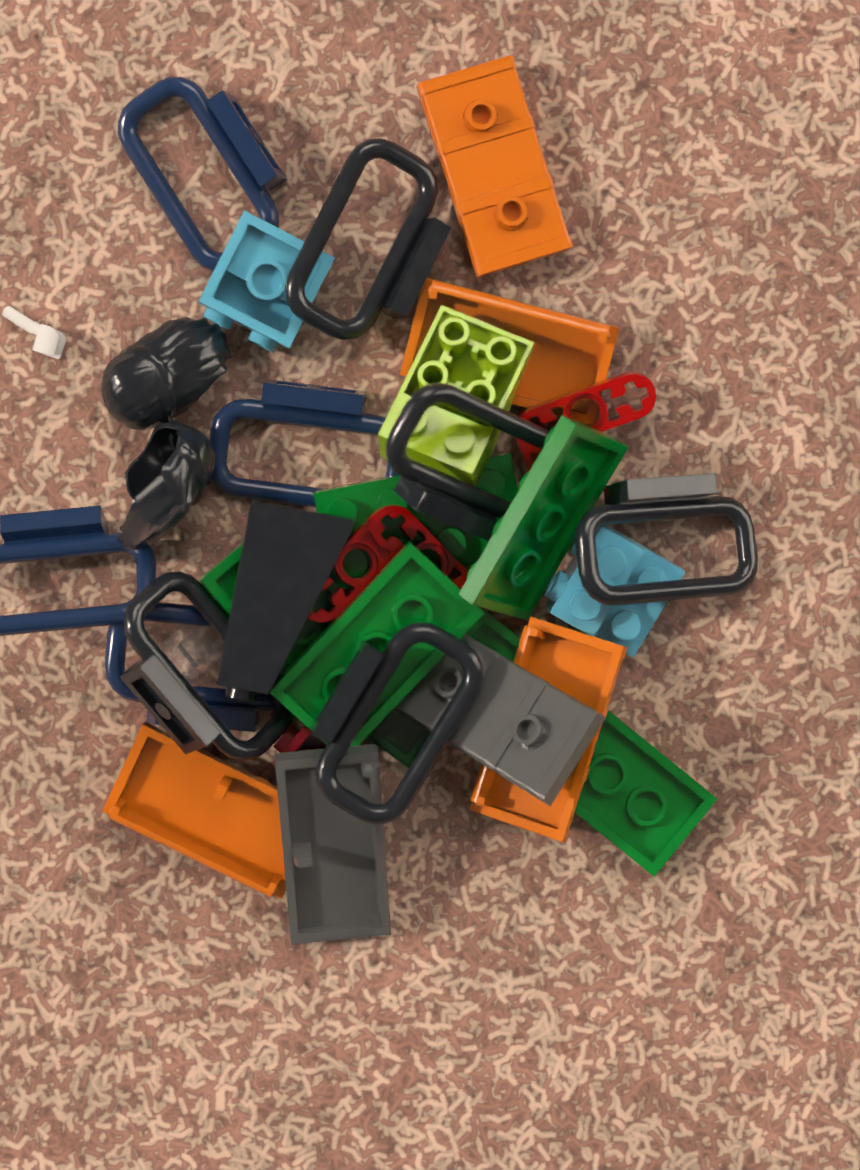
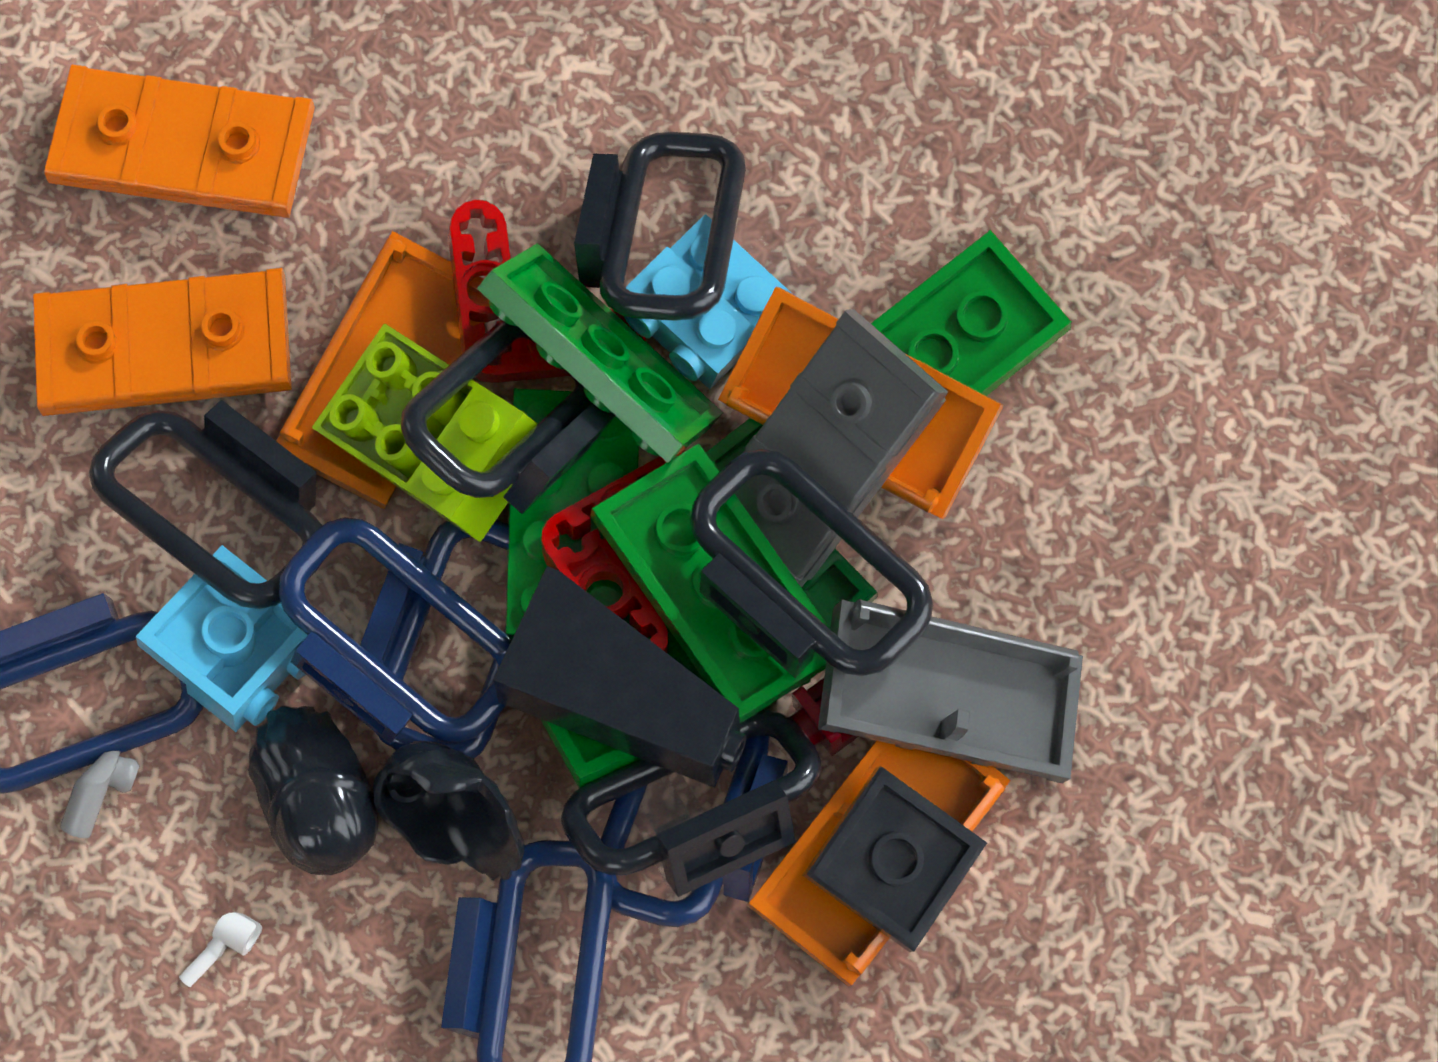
camera: 65 degrees left, 15 degrees down
(130, 203) = (91, 789): none -> light grey arm
(192, 829) = (895, 859): none -> black plate
(250, 389) = (352, 672): none -> dark blue bar
(664, 137) = (179, 141): none -> orange container

